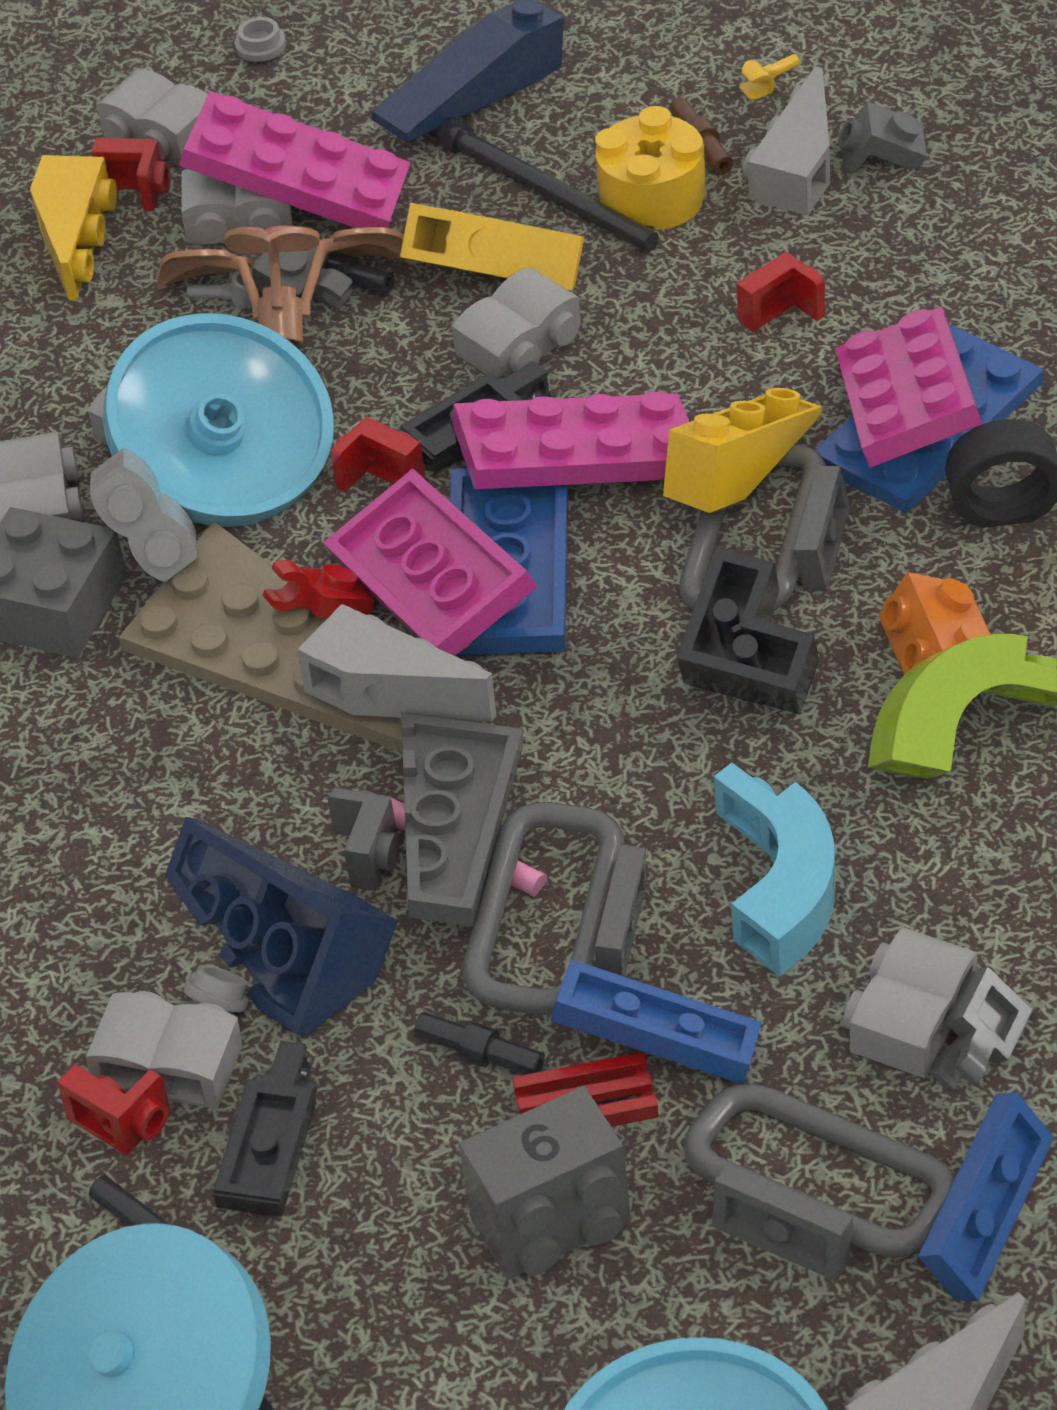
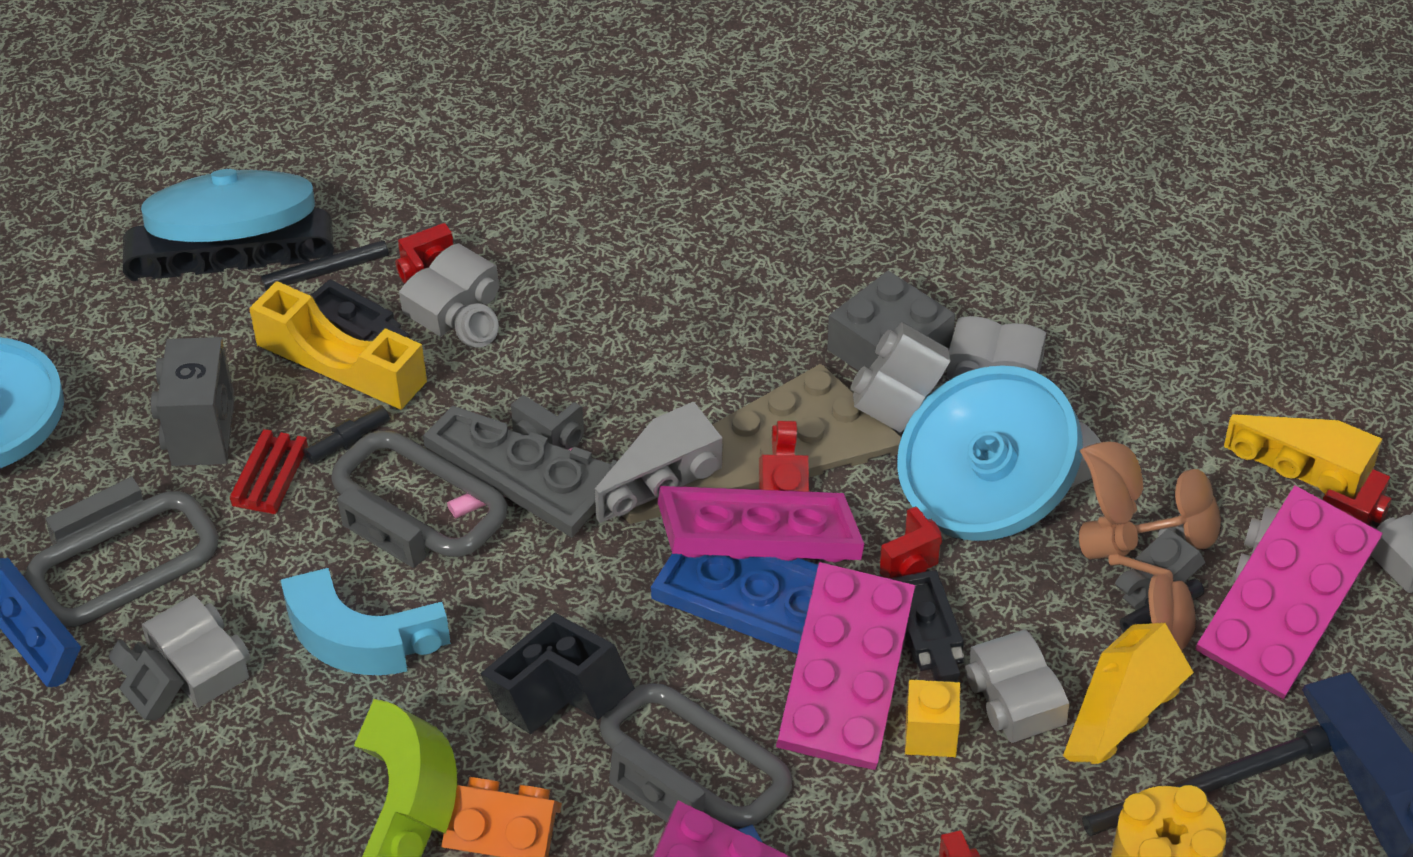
camera: 110 degrees right, 0 degrees up
(291, 930) = (492, 372): dark blue wedge -> none
(341, 1150) = (296, 329): none -> yellow arch
(604, 358) = (932, 718): none -> yellow brick
(656, 1021) = (279, 507): blue plate -> none
(731, 451) = (765, 754): yellow slope -> none

